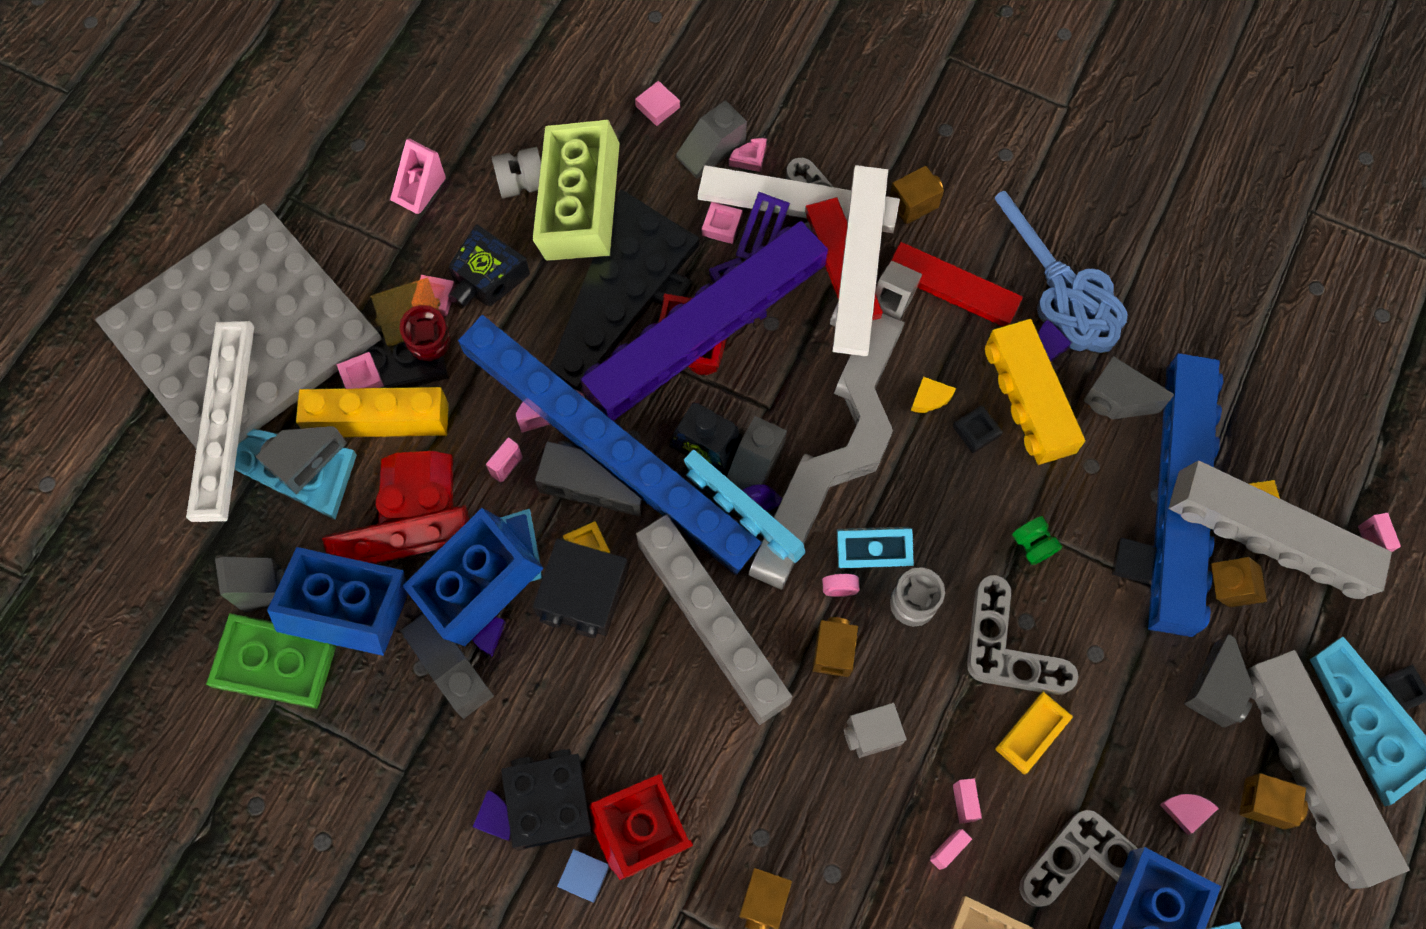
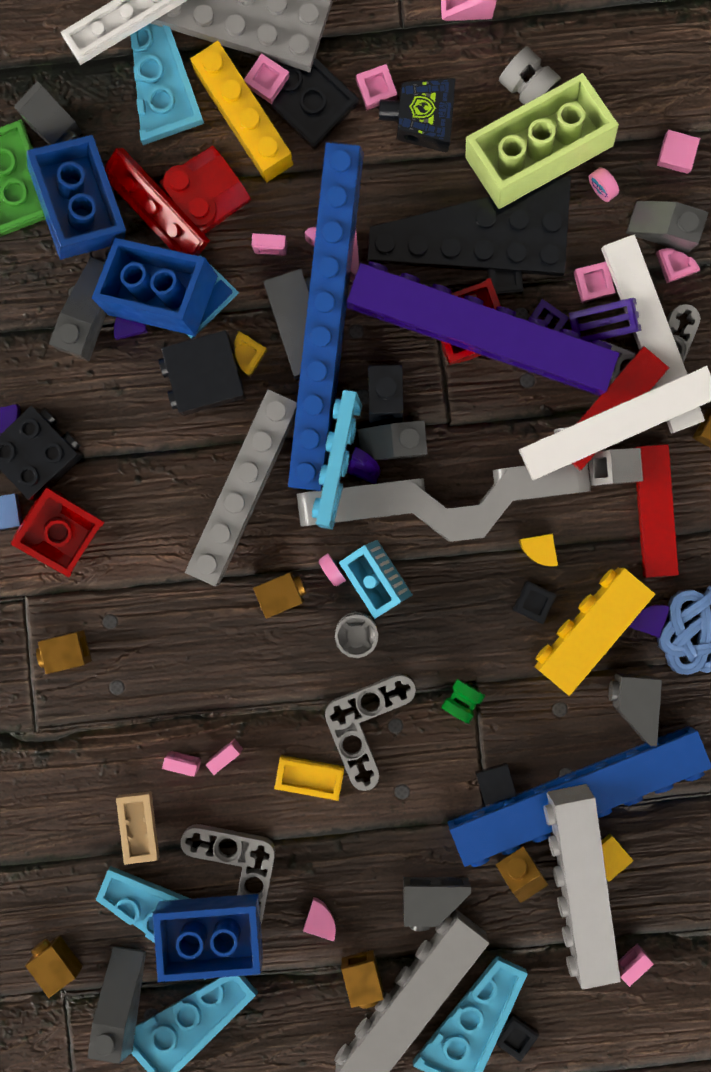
camera: 60 degrees right, 20 degrees up
(300, 454) = (165, 81): dark grey slope -> none
(395, 302) = (345, 77): clear yellow piece -> none
(425, 332) = (328, 106): dark red wheel -> none
(645, 168) = (603, 184): none -> bright pink tile
(874, 730) = (233, 660): light grey brick -> none

